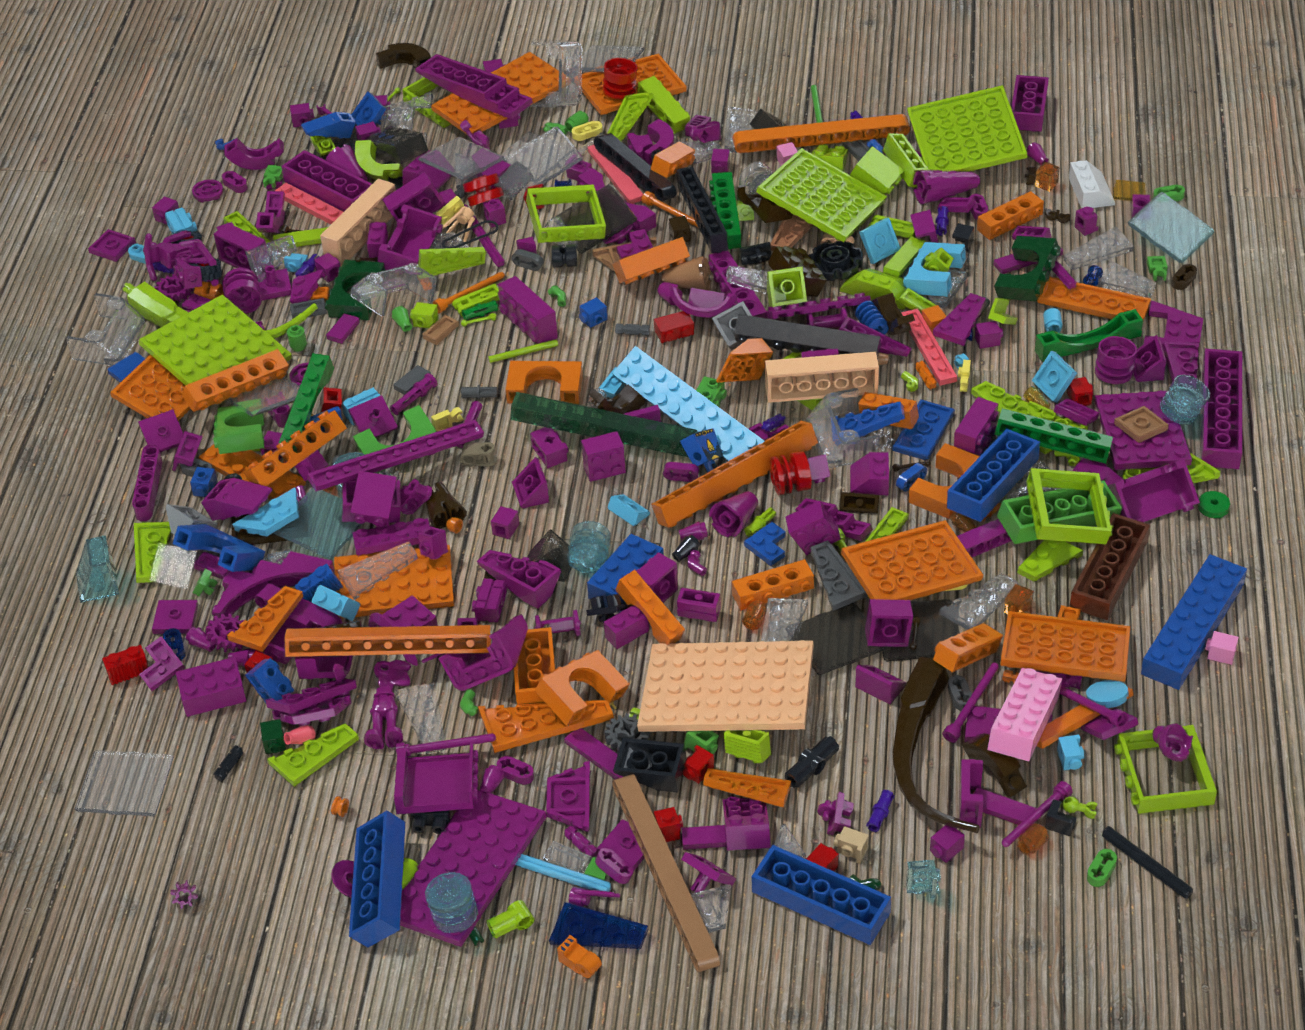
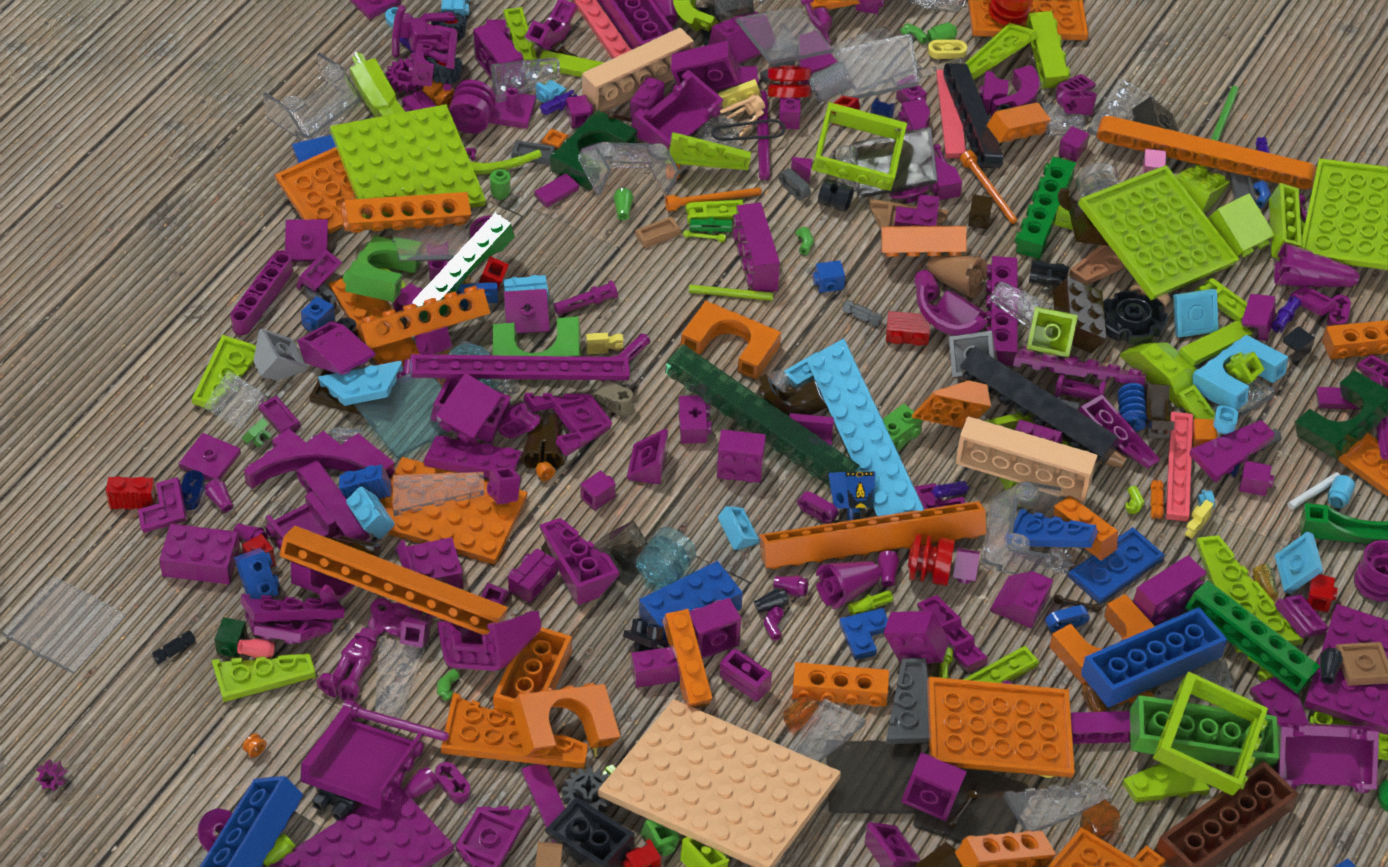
camera: 20 degrees right, 5 degrees up
(96, 571) = (158, 376): clear light blue slope -> none
(219, 629) = (248, 499): magenta gear -> none
(234, 553) = (304, 412): blue arch -> none
(267, 621) = (282, 509): orange wing -> none
(304, 286) = (542, 125): magenta wing -> none
(406, 383) = (594, 278): dark grey tile -> none
(421, 673) = (415, 630): none -> magenta brick
(424, 315) = (648, 208): lime brick -> none
(458, 474) = (578, 413): none -> magenta wing
(477, 392) = (656, 323): dark grey axle -> none
(561, 624) = (588, 635): magenta hose -> none
(702, 210) = (1014, 198): black brick -> none
(758, 488) = (888, 564): none -> magenta cone
(859, 503) = (992, 625): dark brown slope -> none
(946, 301) = (1225, 419): none -> medium azure plate
(998, 312) = (1281, 457): lime panel -> none
(1032, 329) = (1304, 497): none -> white bar
(1119, 431) = (1330, 663): none -> black cone

